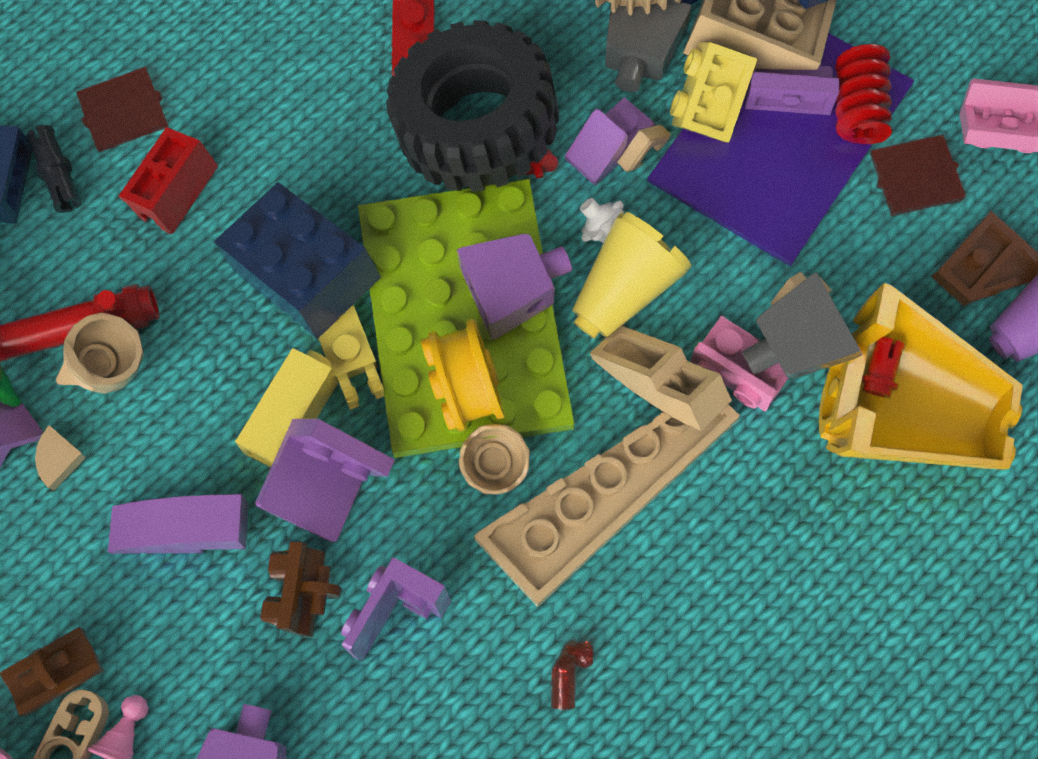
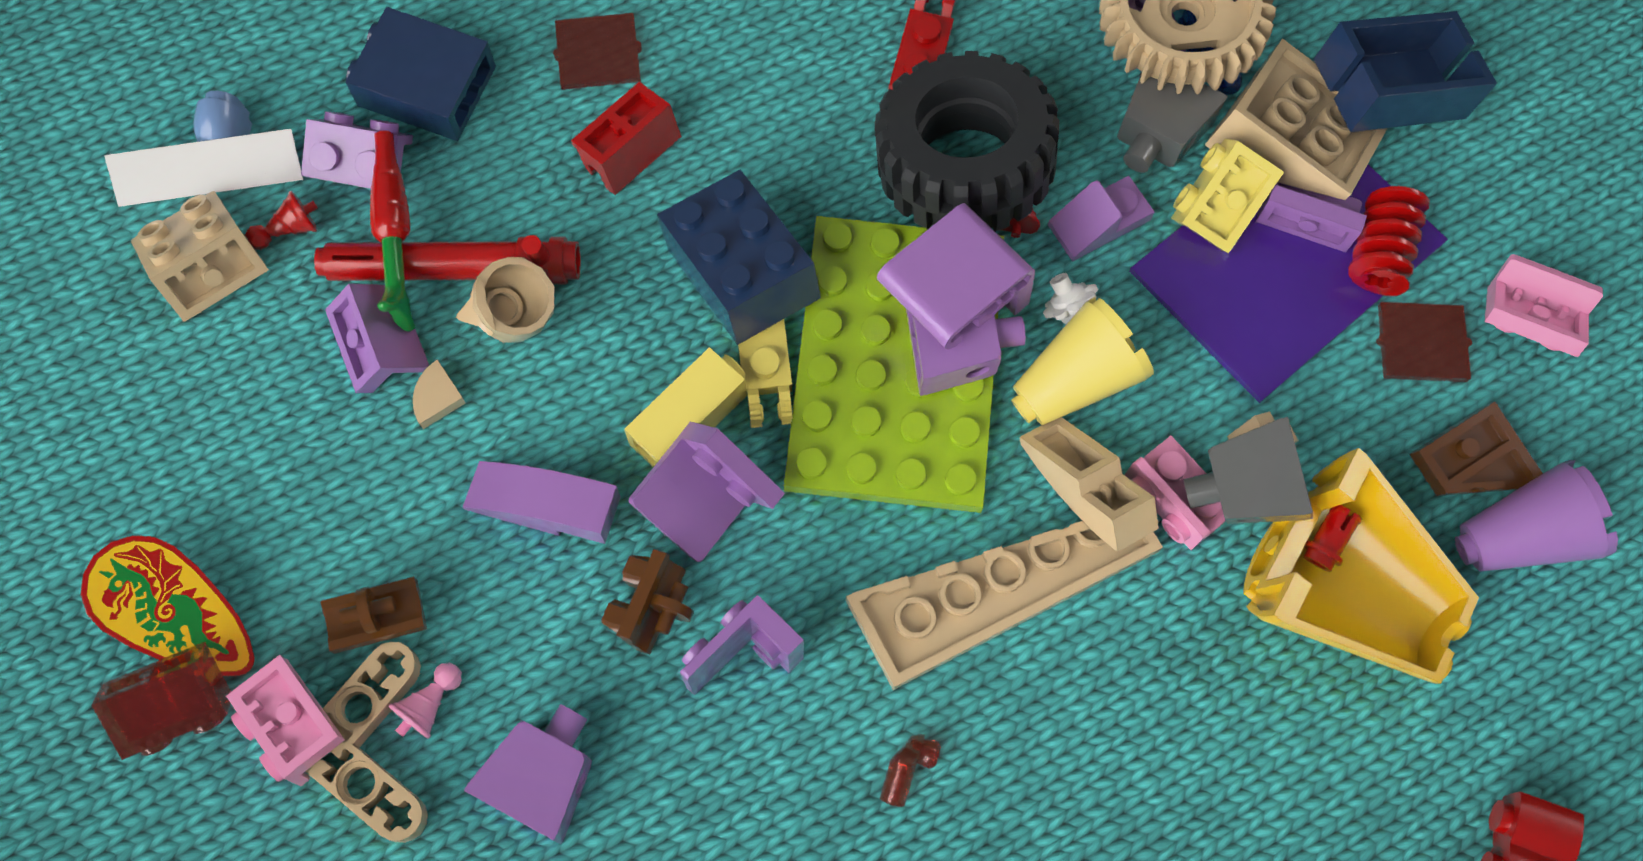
camera: 10 degrees right, 0 degrees up
(54, 168) = (511, 94): black pin -> none
(463, 376) = (880, 425): yellow wheel -> none
(496, 225) = (958, 276): none -> medium lavender piece
(496, 462) = (887, 525): tan hair -> none
(643, 141) = (1139, 226): tan tile -> none

